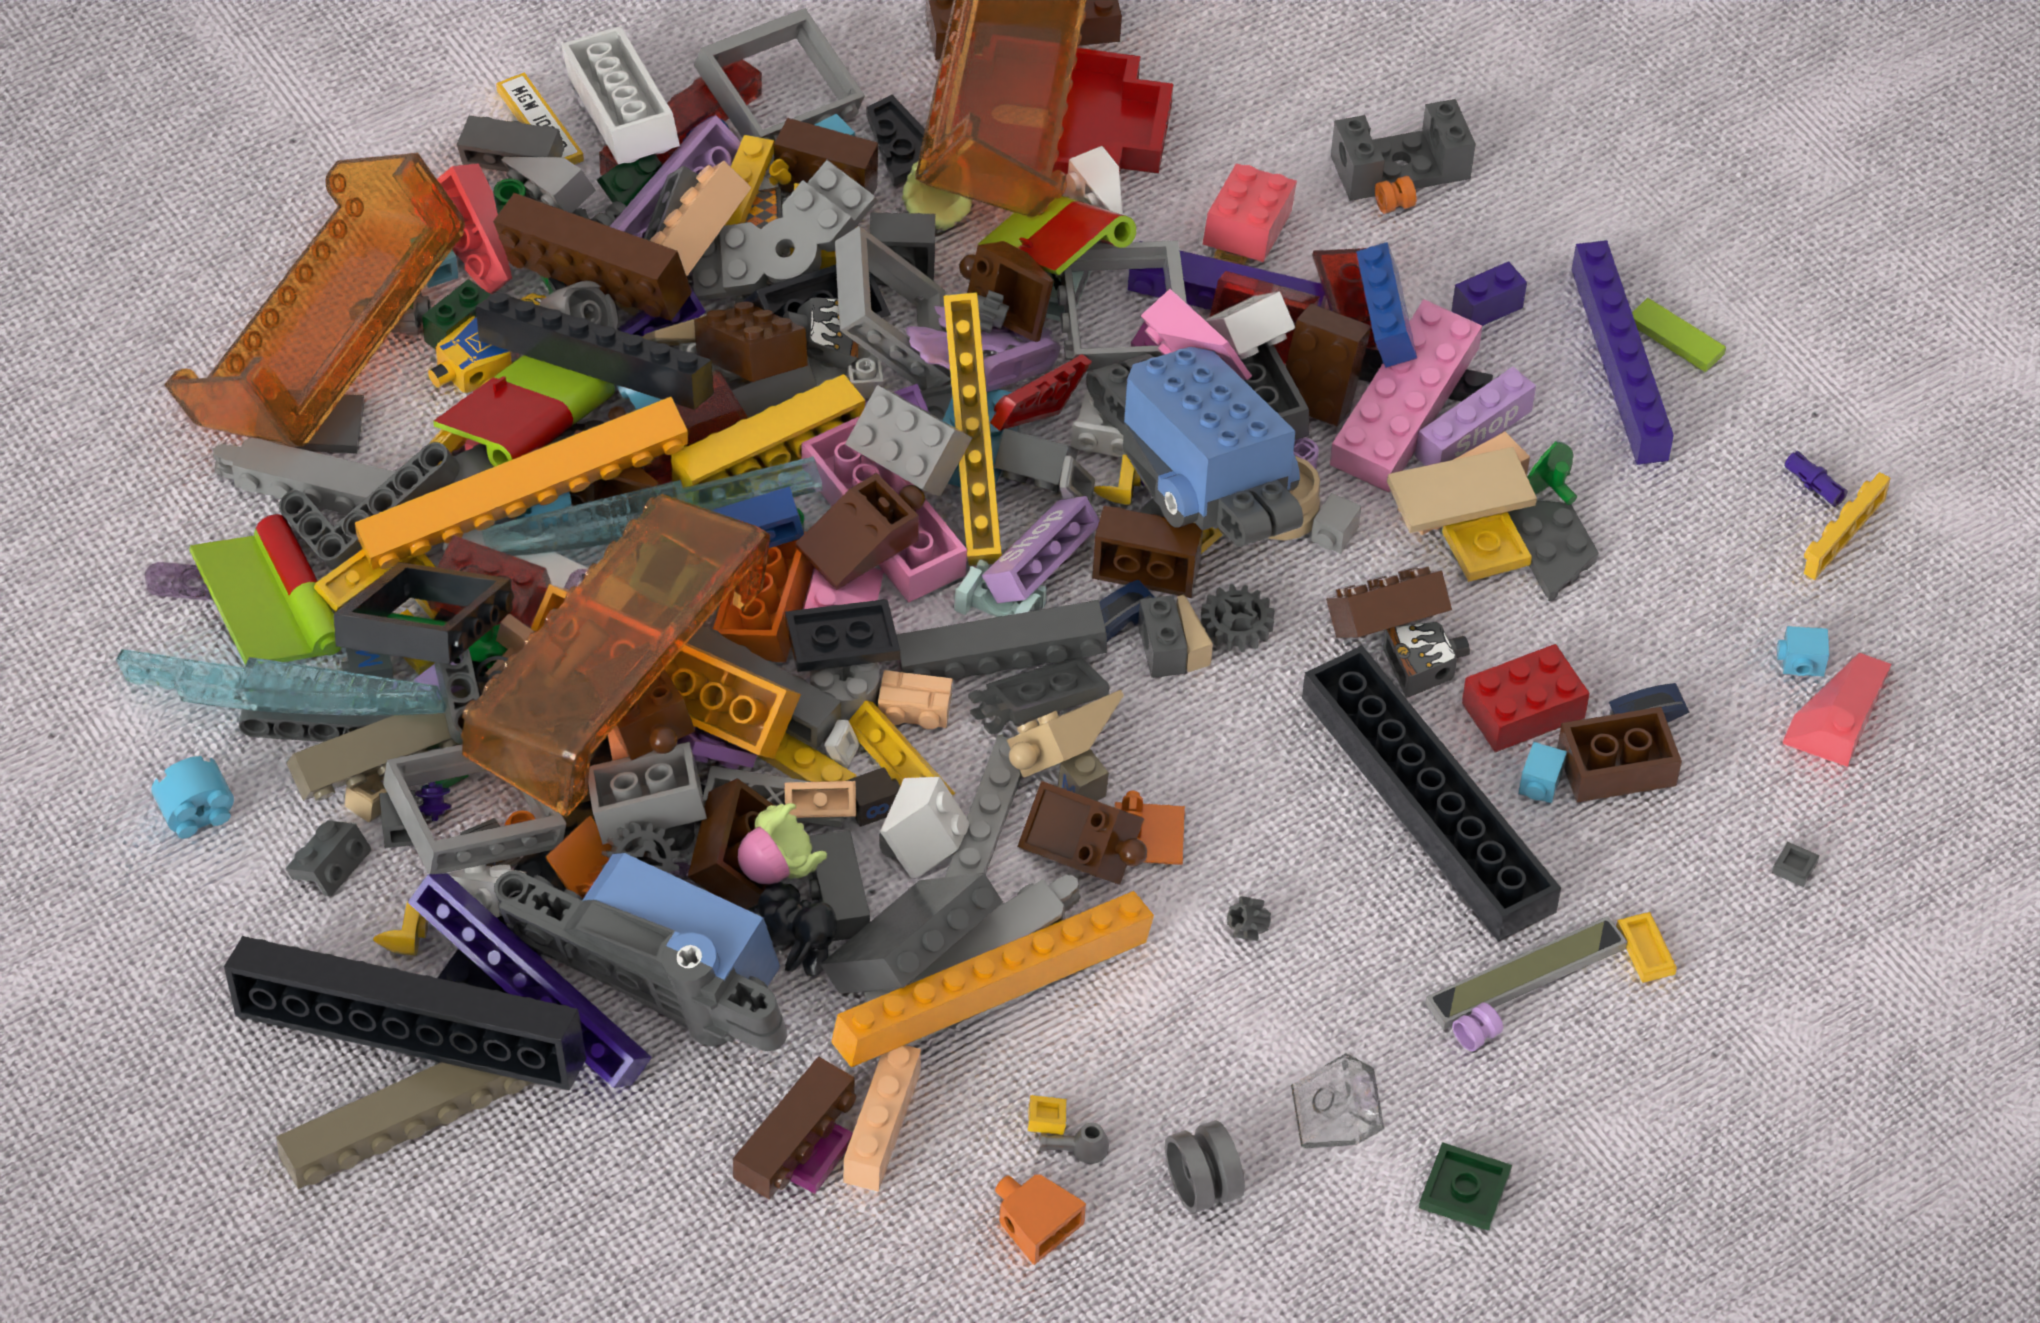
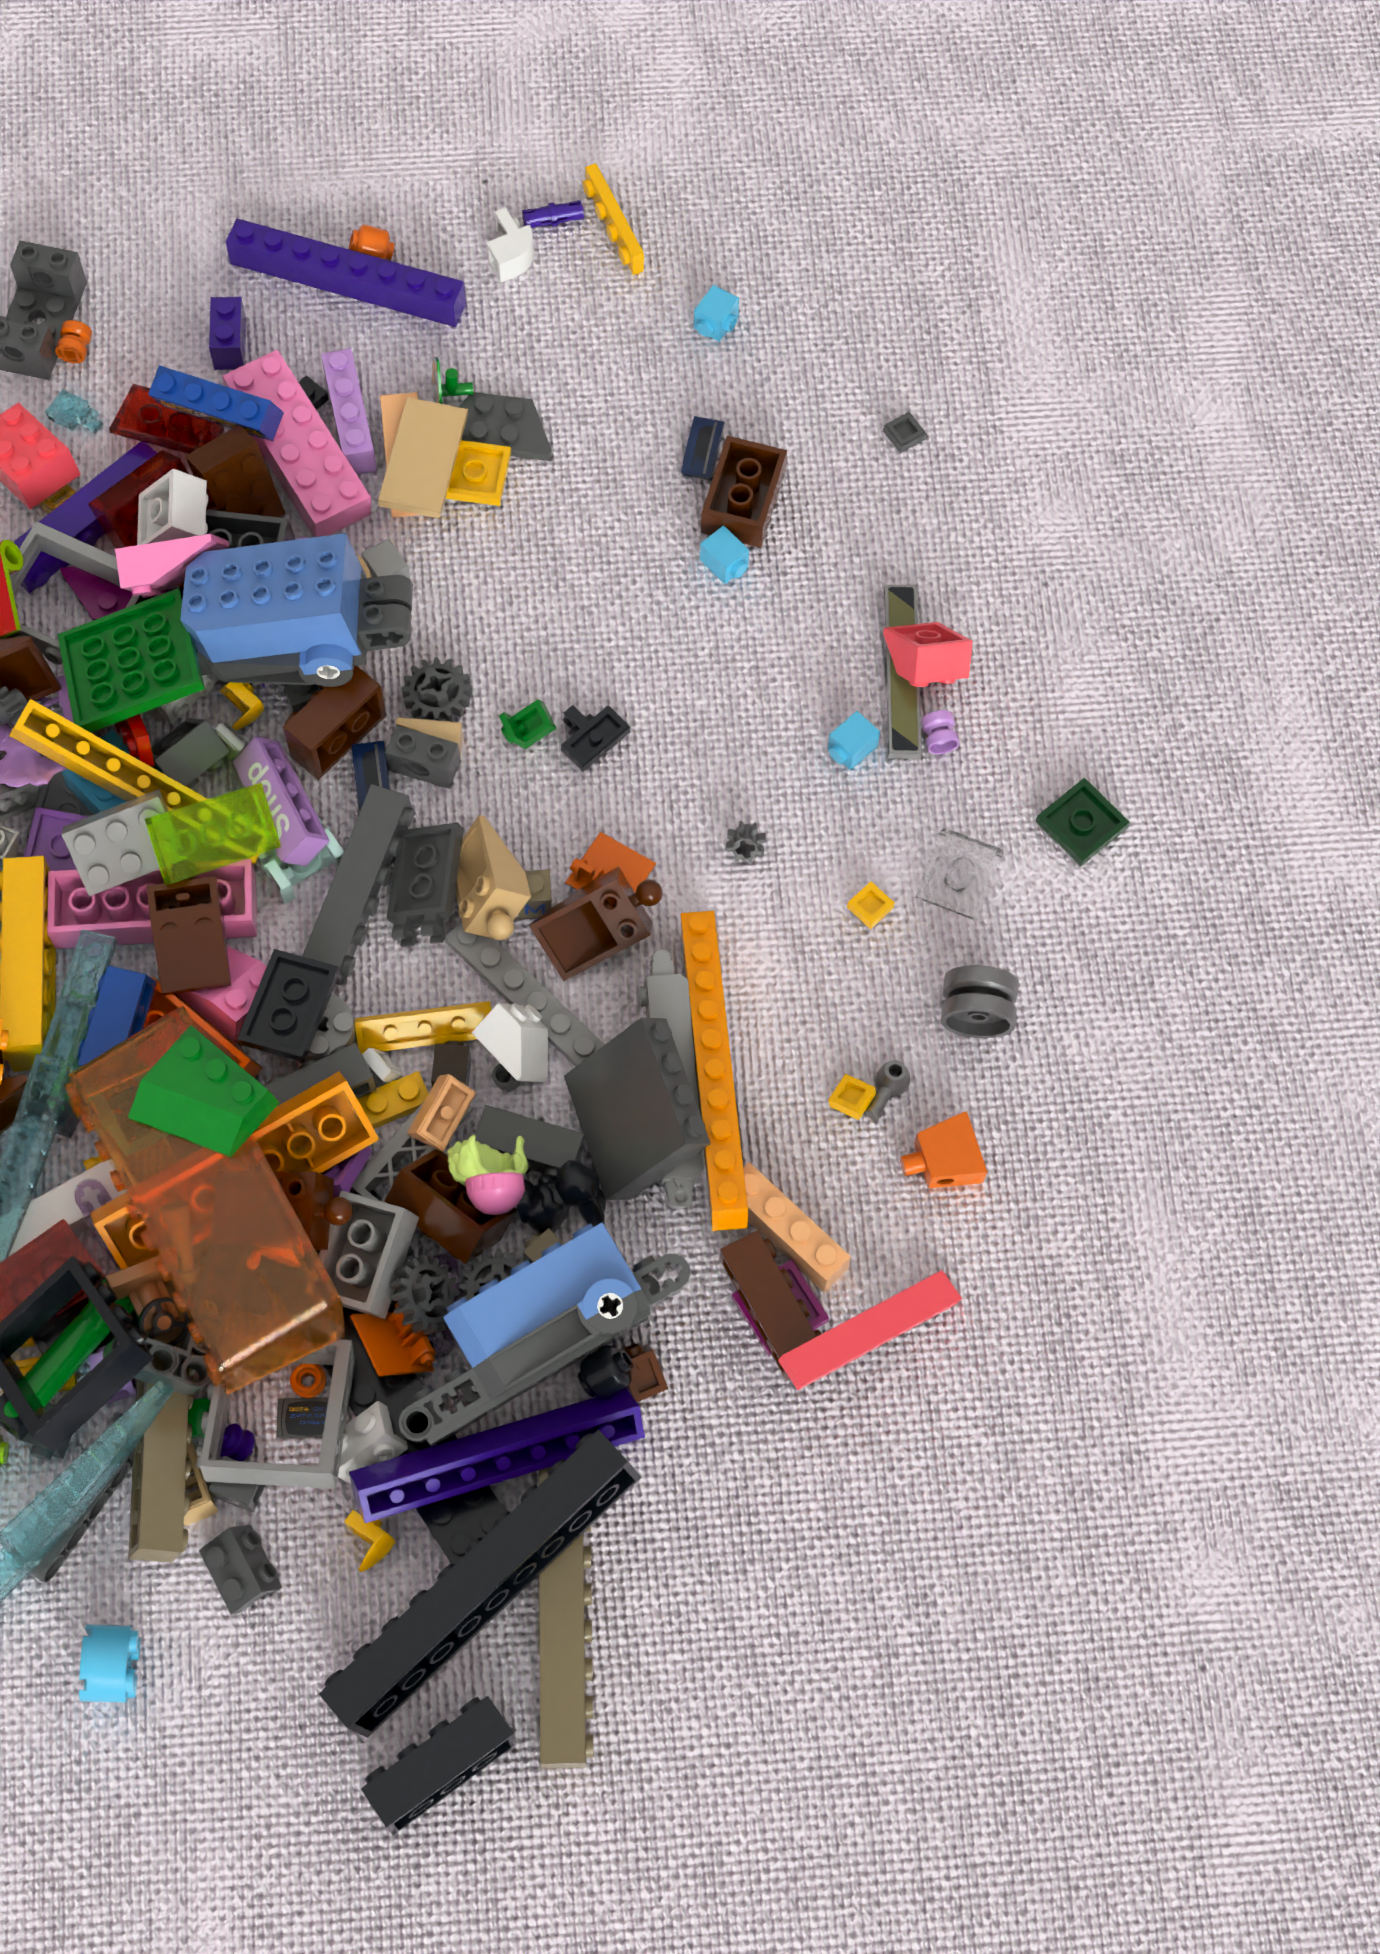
camera: 60 degrees left, 15 degrees up
(234, 1064) = (439, 1764): none -> black brick
(651, 1024) = (605, 1372): none -> black head
(675, 1065) = (646, 1372): none -> reddish brown bracket
(693, 574) = (202, 1096): none -> green wedge
(818, 1211) = (869, 1330): none -> coral tile
(915, 699) = (371, 981): light nougat brick -> none
(959, 496) = (212, 833): none -> clear neon green tile
(1073, 360) = (129, 662): none -> green plate
(1250, 701) = (527, 725): none -> green bracket
(1254, 1048) = (870, 905): none -> yellow plate
(1277, 755) = (592, 735): none -> black hinge
(1327, 228) = (72, 410): none -> clear light blue plate
(1388, 602) = (504, 571): reddish brown brick -> none
(1416, 959) = (853, 740): none -> medium azure brick
(1422, 655) = (558, 577): torso -> none
(1431, 793) = (701, 643): black brick -> none
(1525, 697) = (646, 527): red brick -> none
(1551, 975) = (928, 653): none -> coral slope
(1646, 947) = (927, 574): yellow tile -> none
(1666, 356) = (372, 242): none -> orange head
(1677, 335) = (339, 228): lime tile -> none
(1749, 465) = (513, 250): none -> white brick
(1839, 712) = (785, 322): coral wedge -> none

